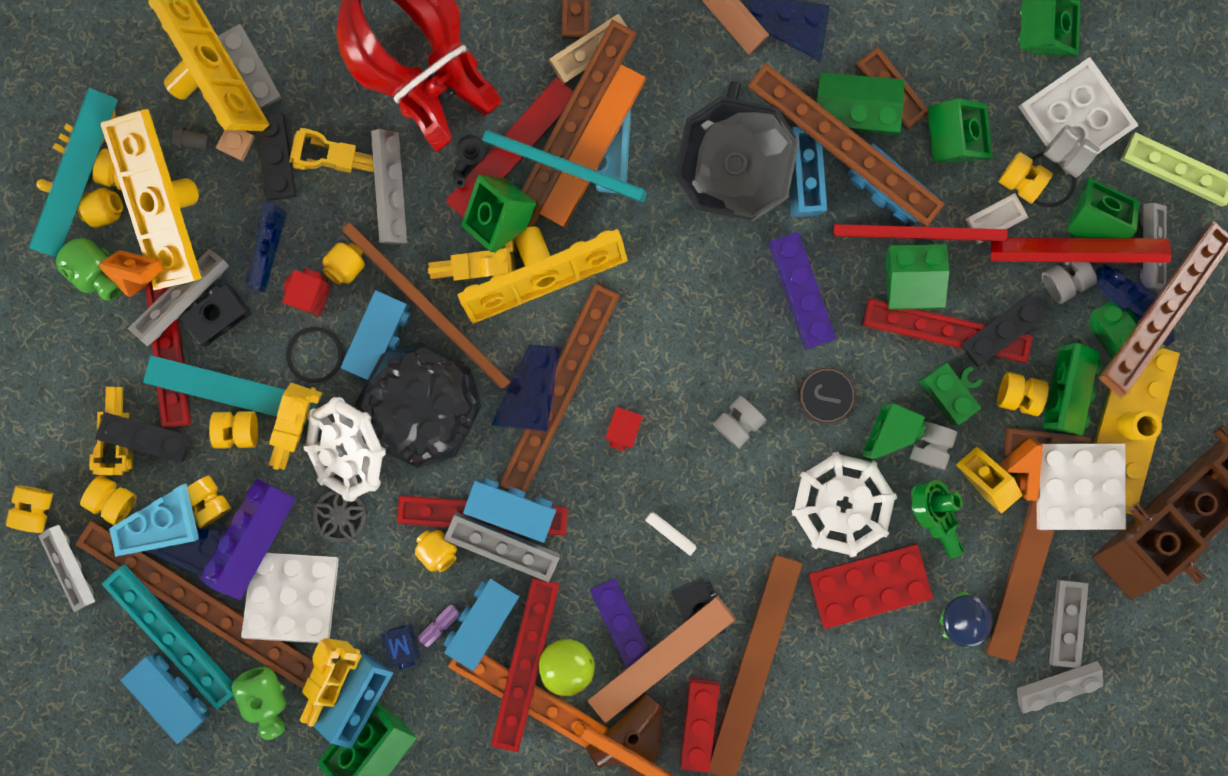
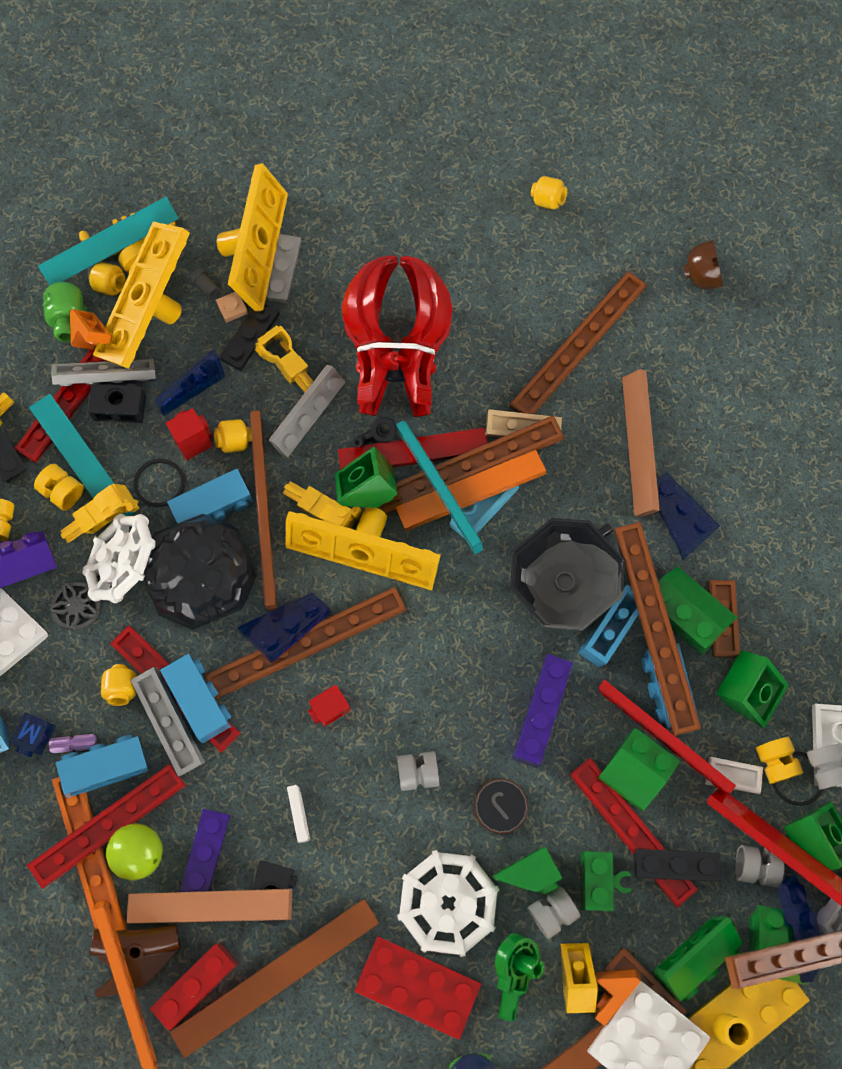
camera: 35 degrees right, 15 degrees down
(1022, 394) = (655, 928): yellow wheel -> none

